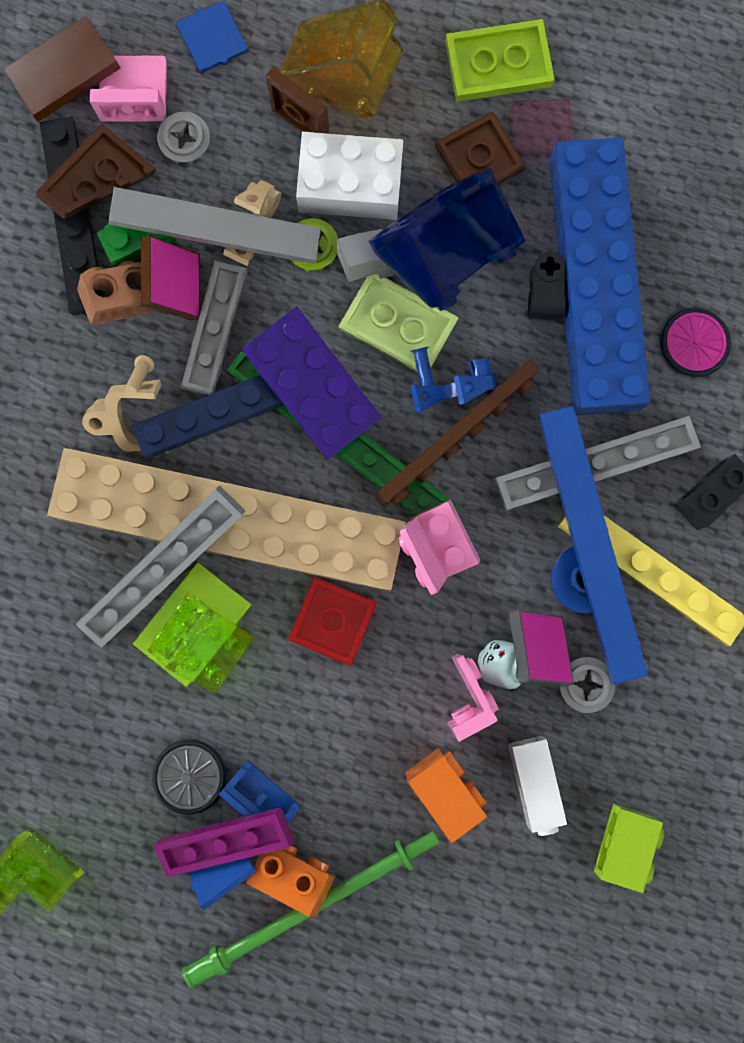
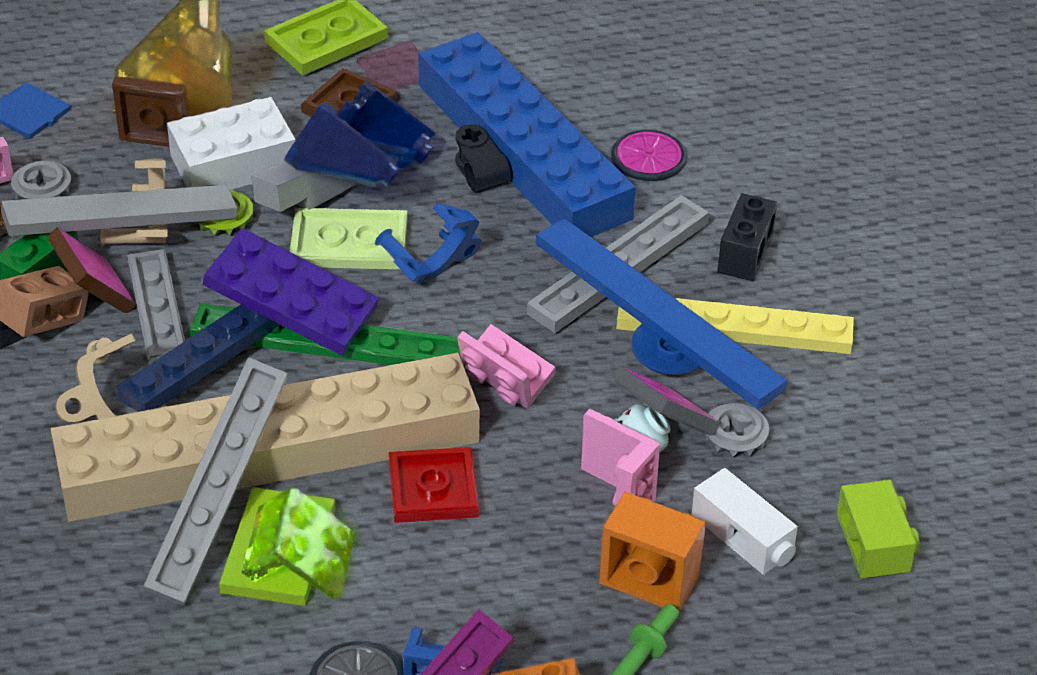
camera: 25 degrees left, 40 degrees down
(448, 444) = (461, 287): reddish brown plate -> none

